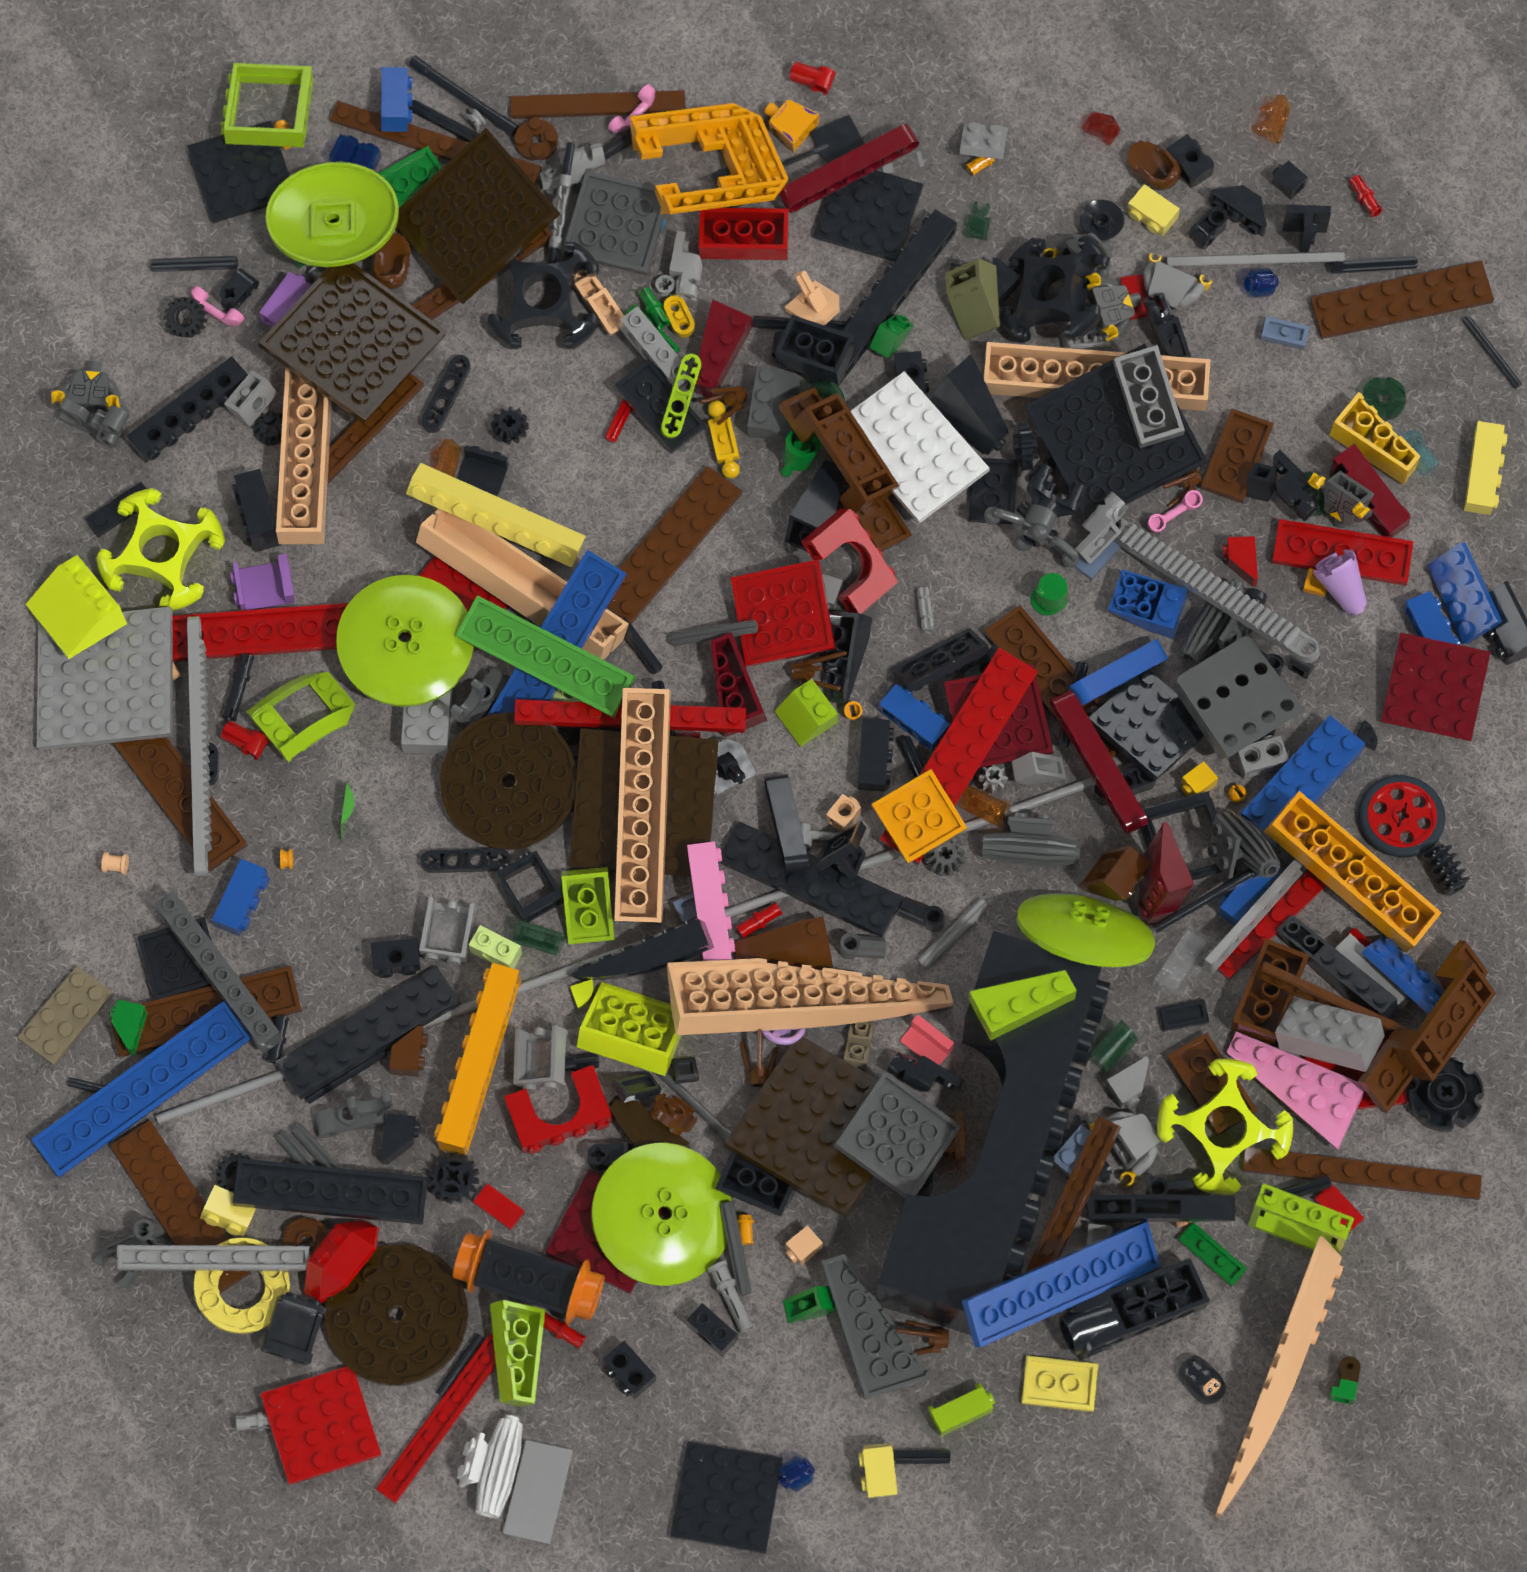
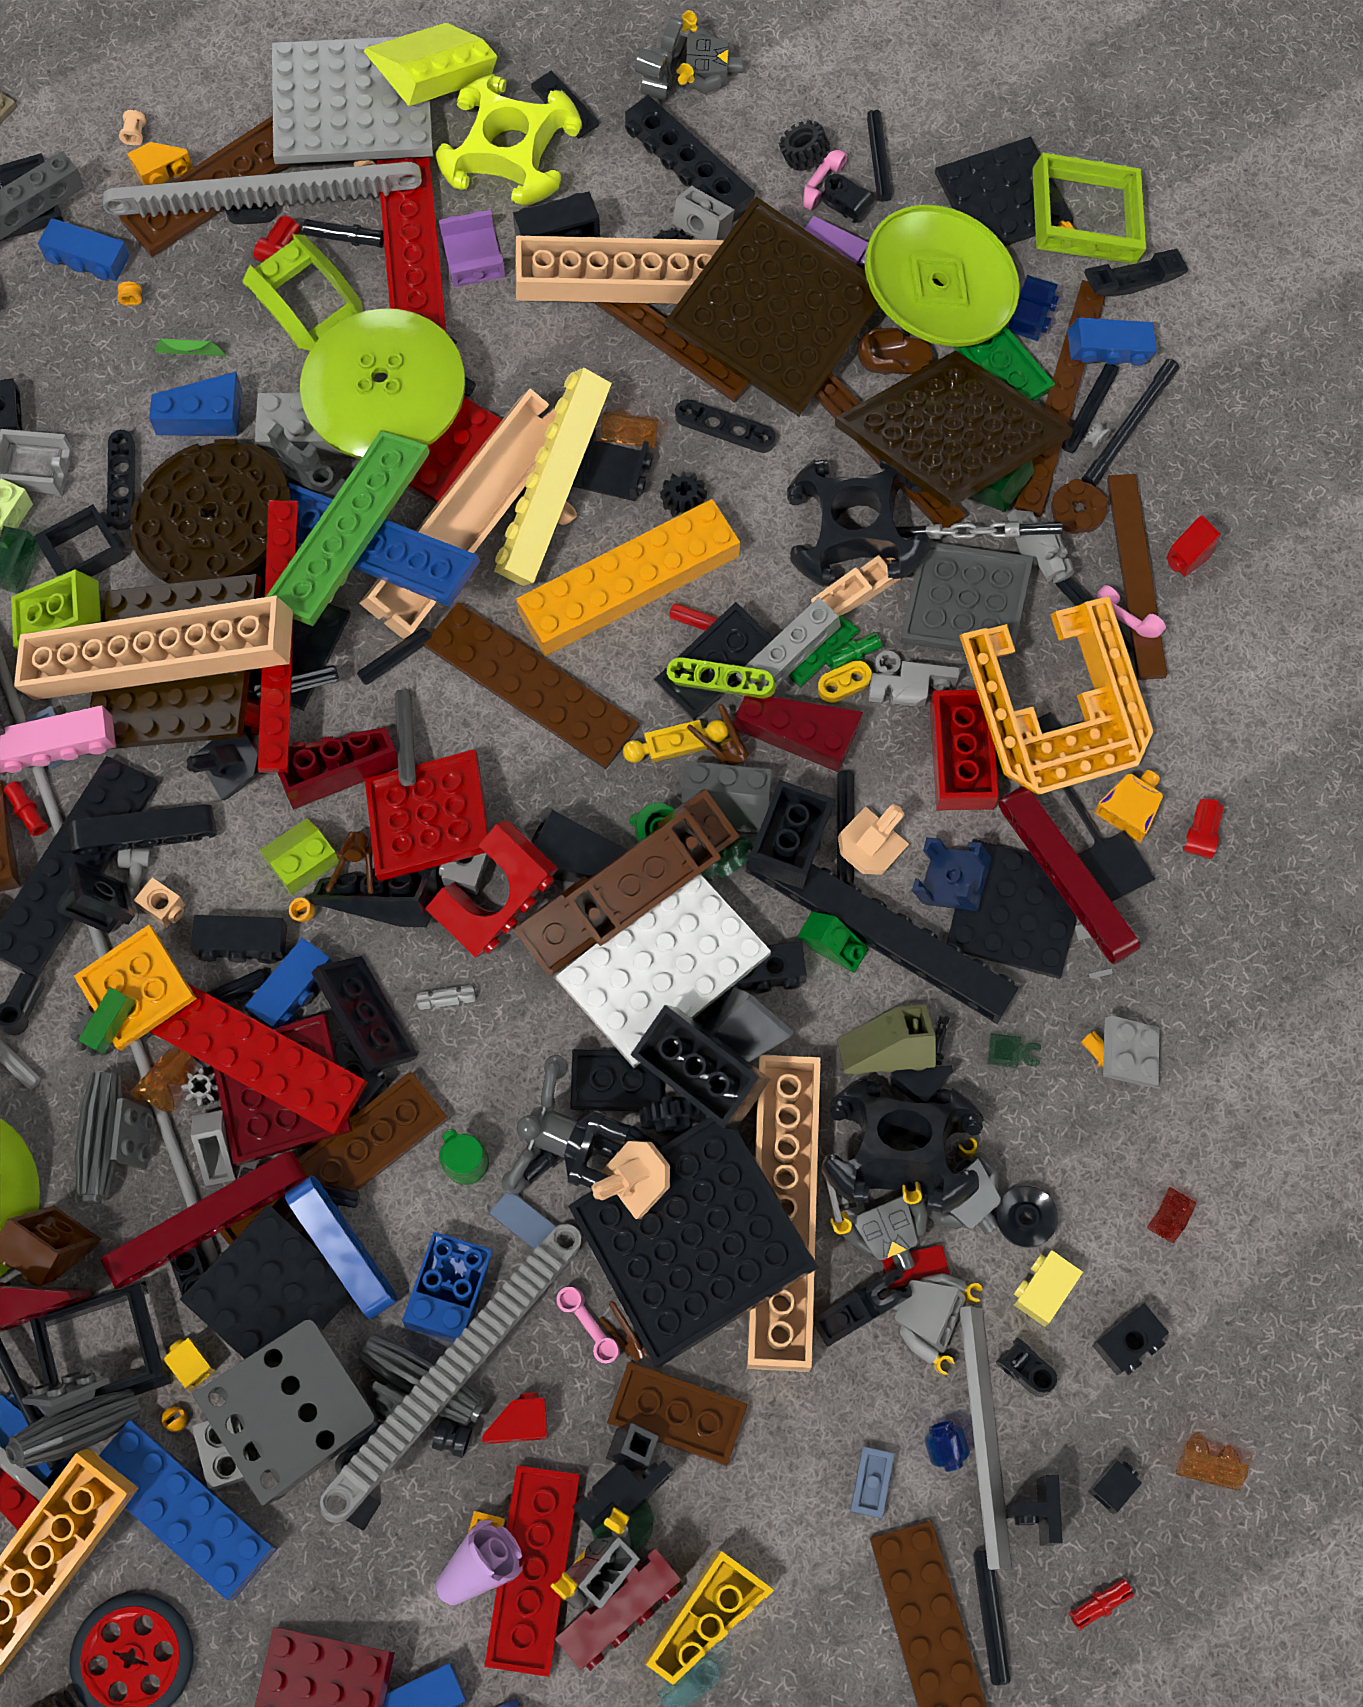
camera: 85 degrees right, 0 degrees up
(155, 840) = (159, 162): none -> light orange slope
(328, 76) = (1138, 276): none -> black slope
(407, 794) = (199, 408): none -> blue wedge
(582, 59) = (1193, 547): none -> red slope
(582, 467) = (628, 577): none -> light orange brick
(845, 247) = (953, 876): none -> dark blue panel
(946, 832) = (106, 1020): none -> green slope
(999, 412) = (700, 1067): none -> black brick
(1073, 463) = (637, 1177): none -> light nougat piece
(1101, 527) = (554, 1220): light grey plate -> none
(1148, 396) = (731, 1271): light grey brick -> none
(1153, 165) = (1117, 1287): reddish brown hair -> none
(1241, 206) = (1065, 1417): black slope -> none
(1368, 735) = (254, 1606): black tile -> none
(1390, 387) = (796, 1632): clear green plate -> none

